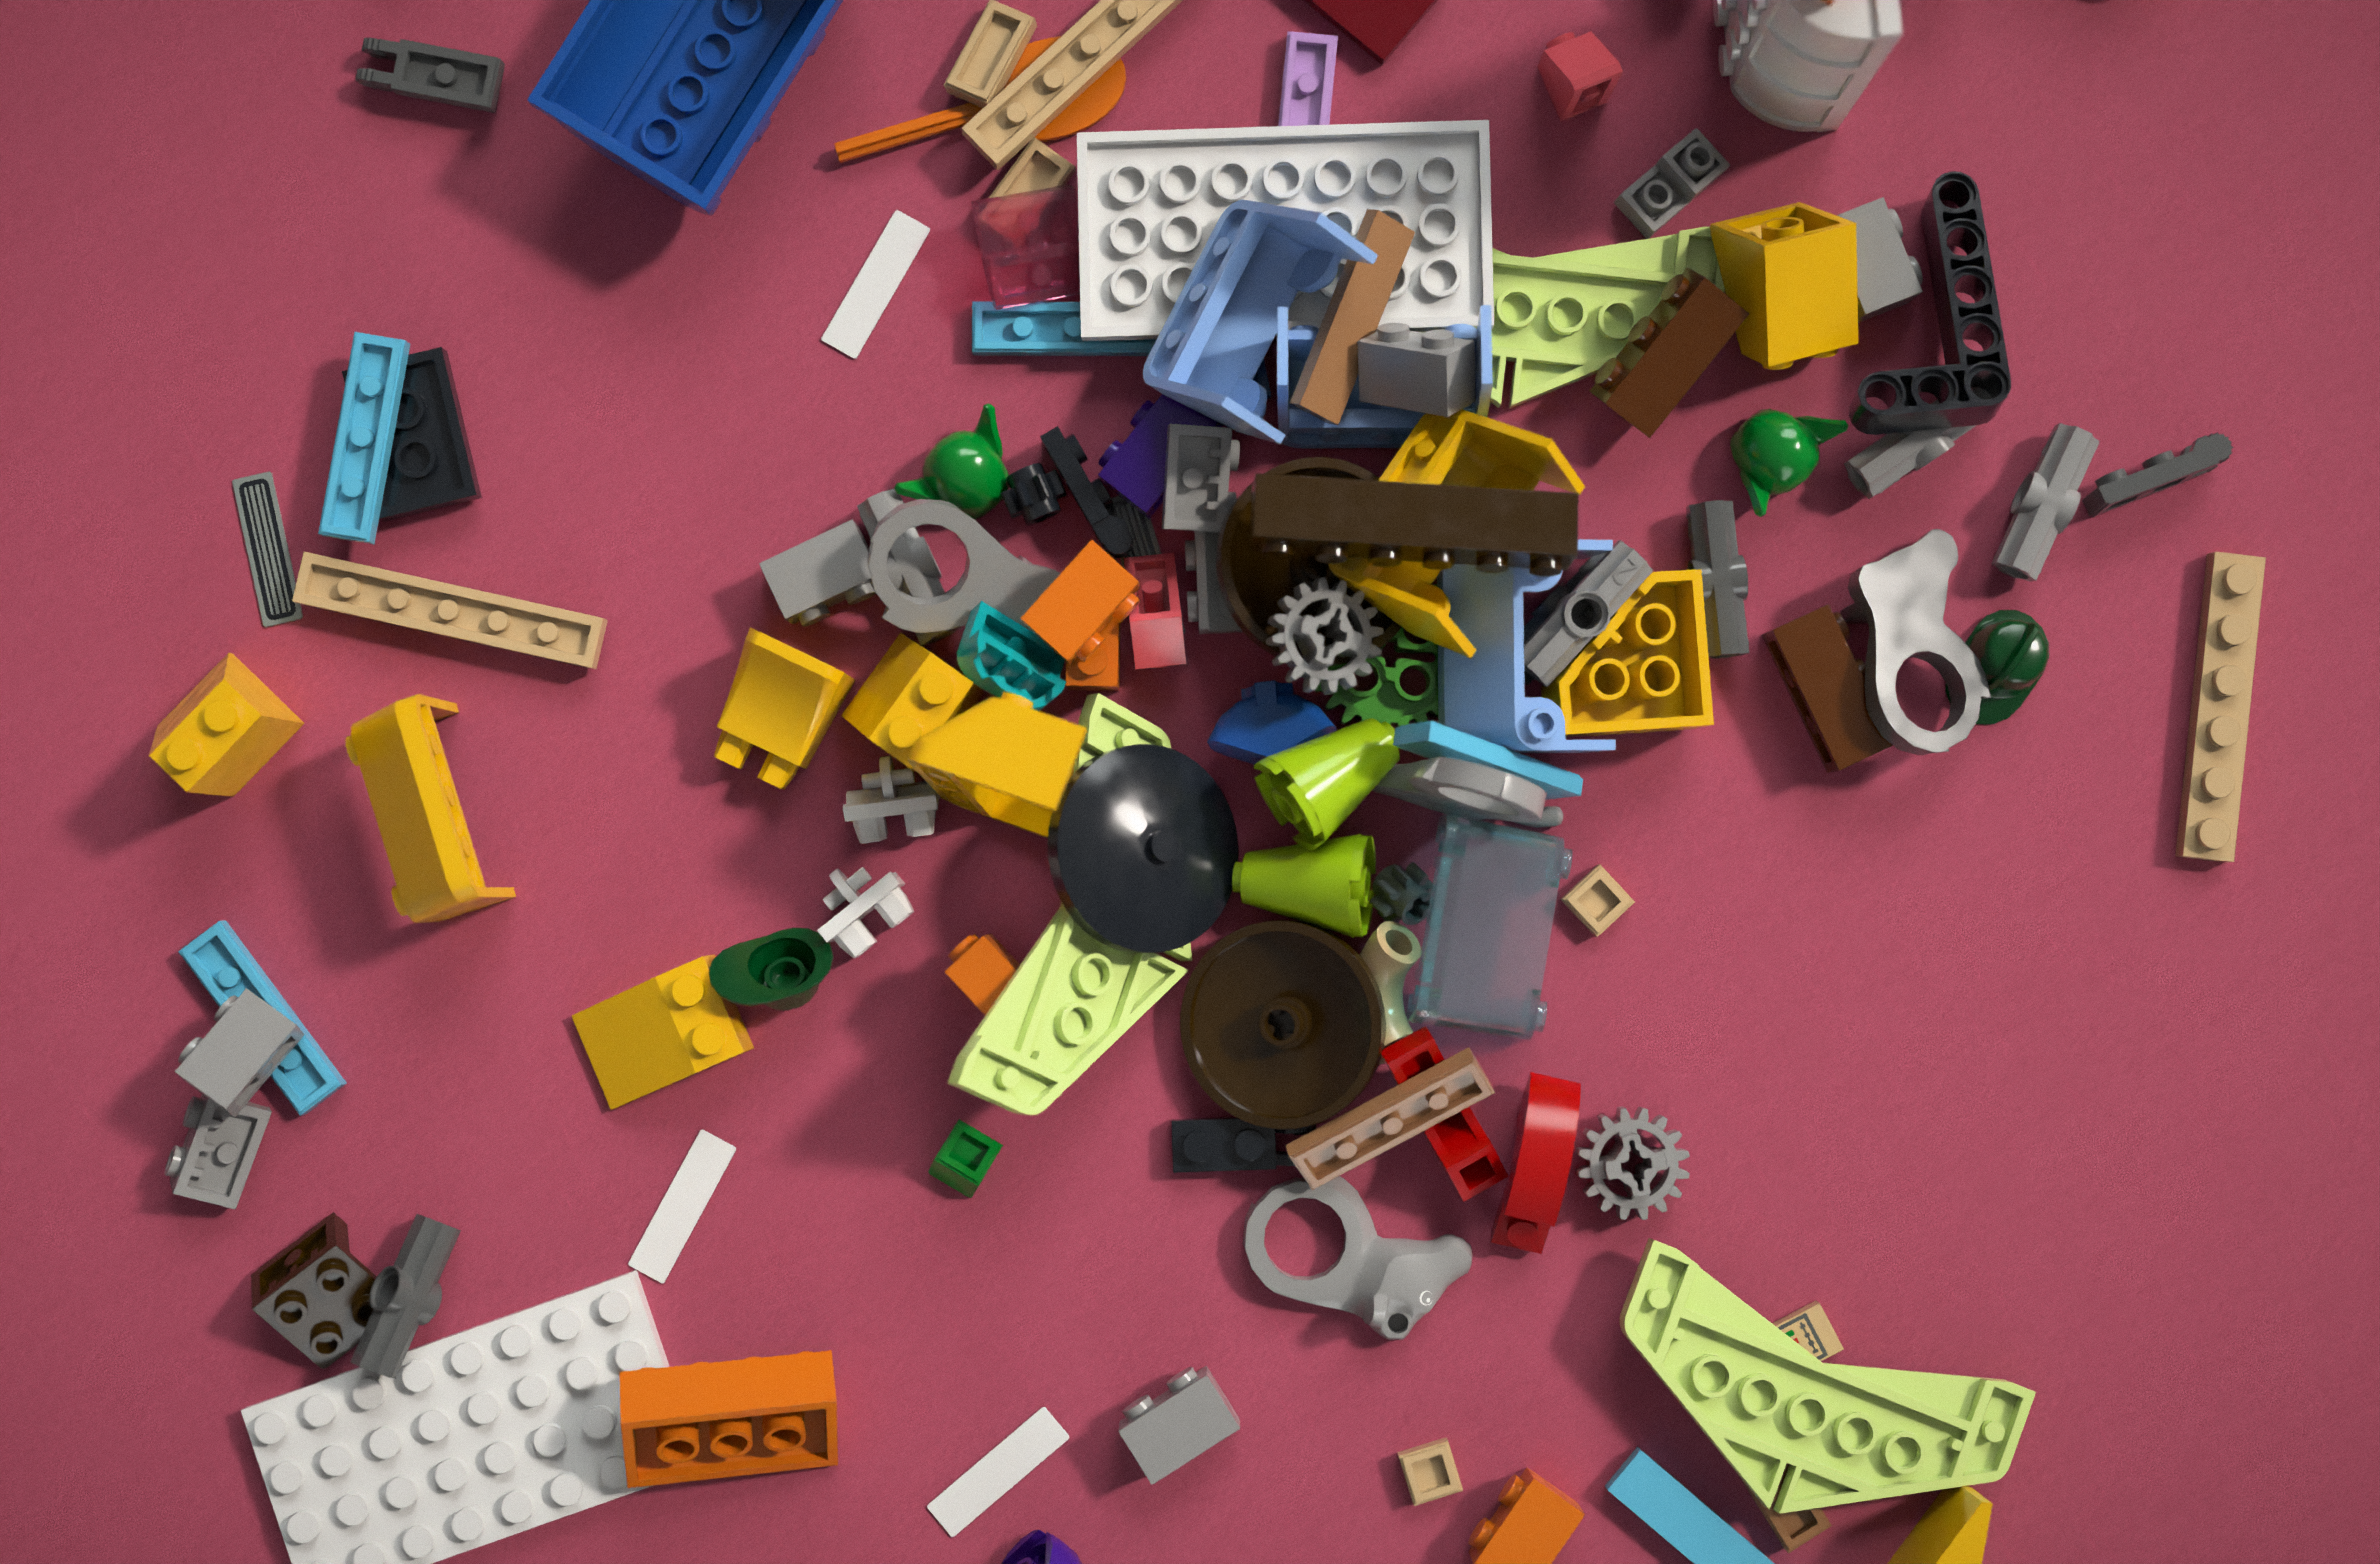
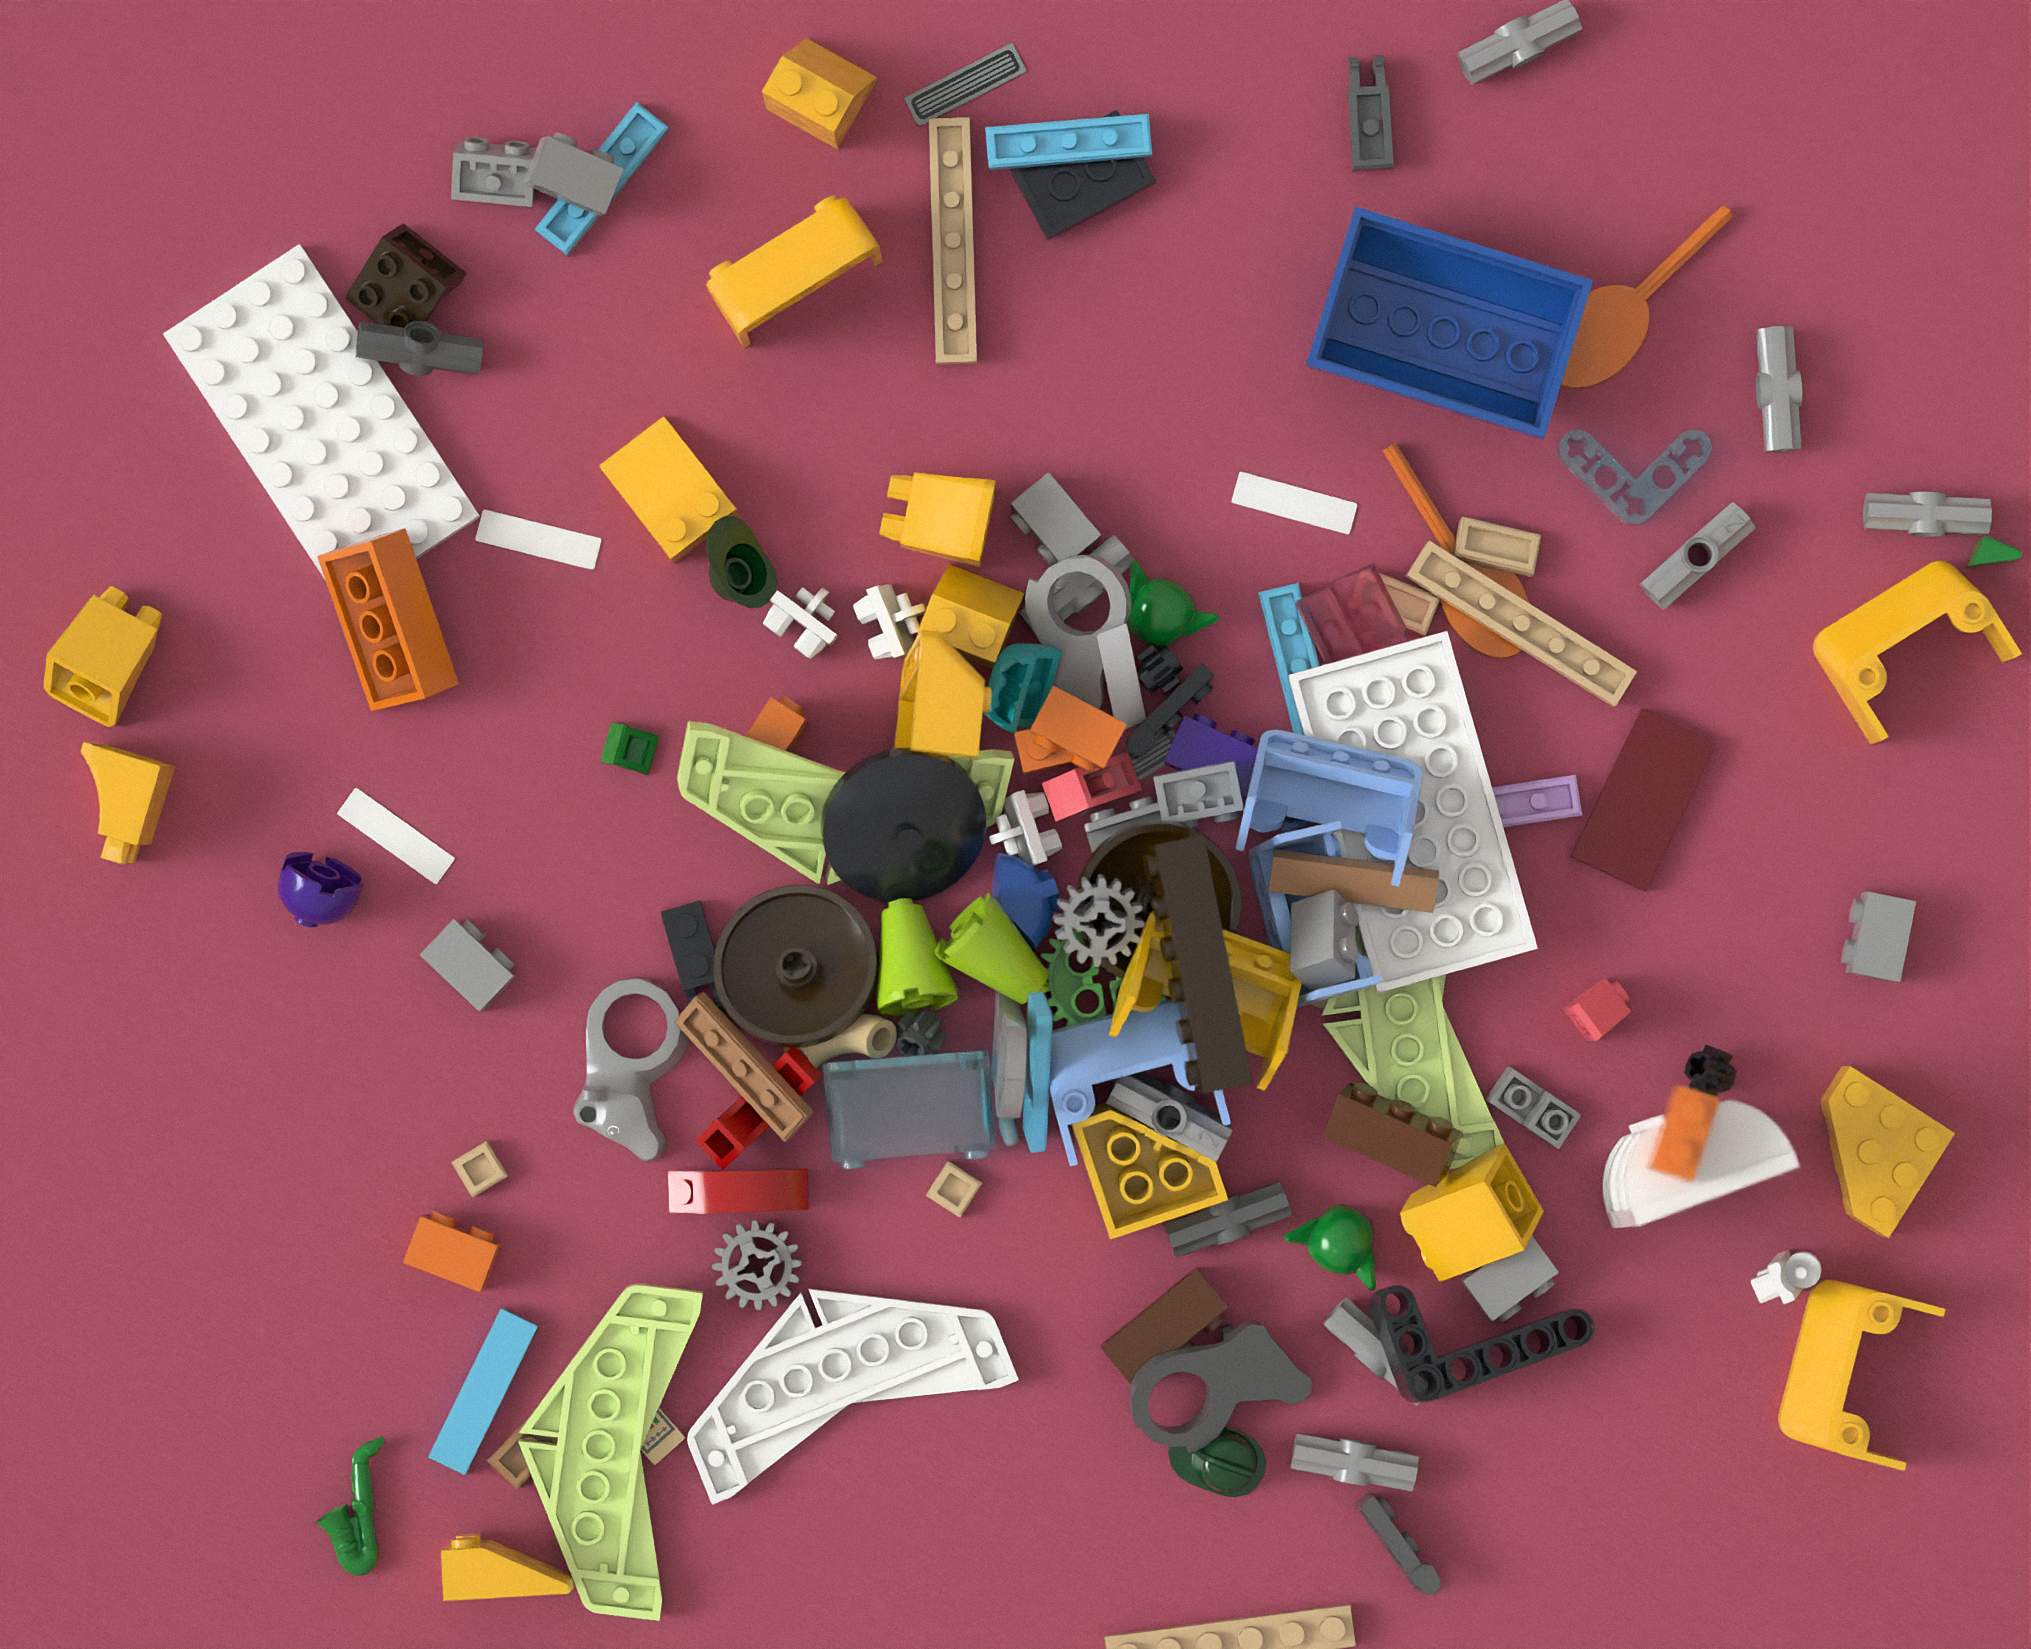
camera: 75 degrees right, 0 degrees up
(1027, 537) = (1121, 675): none -> white sticker
(1185, 709) = (1019, 829): none -> white hips
(1778, 1131) = (810, 1373): none -> white wing

